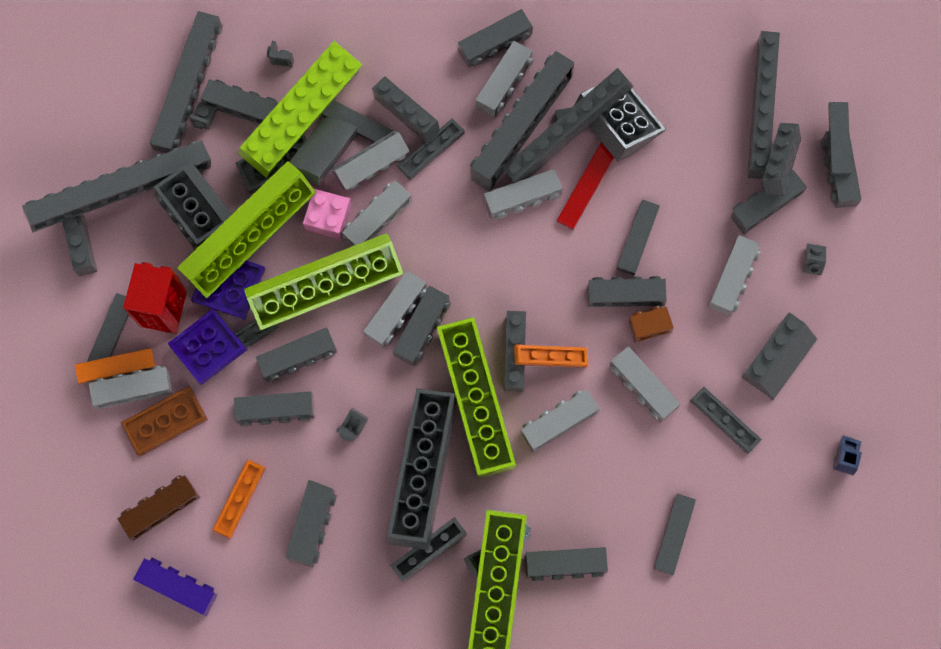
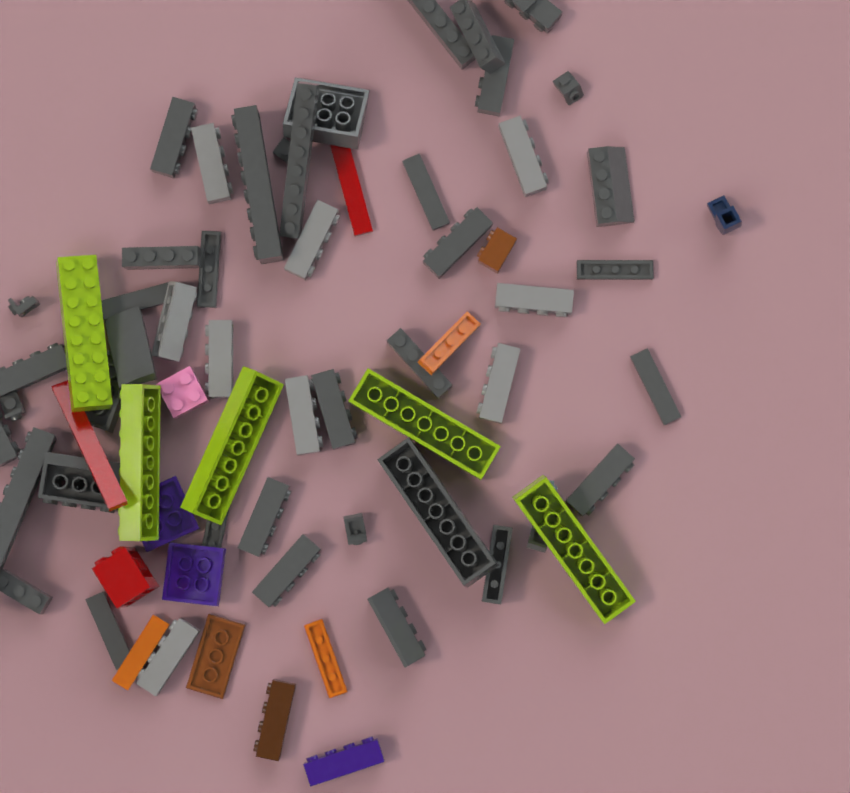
camera: 45 degrees left, 10 degrees up
(220, 192) = (90, 449): none -> tile

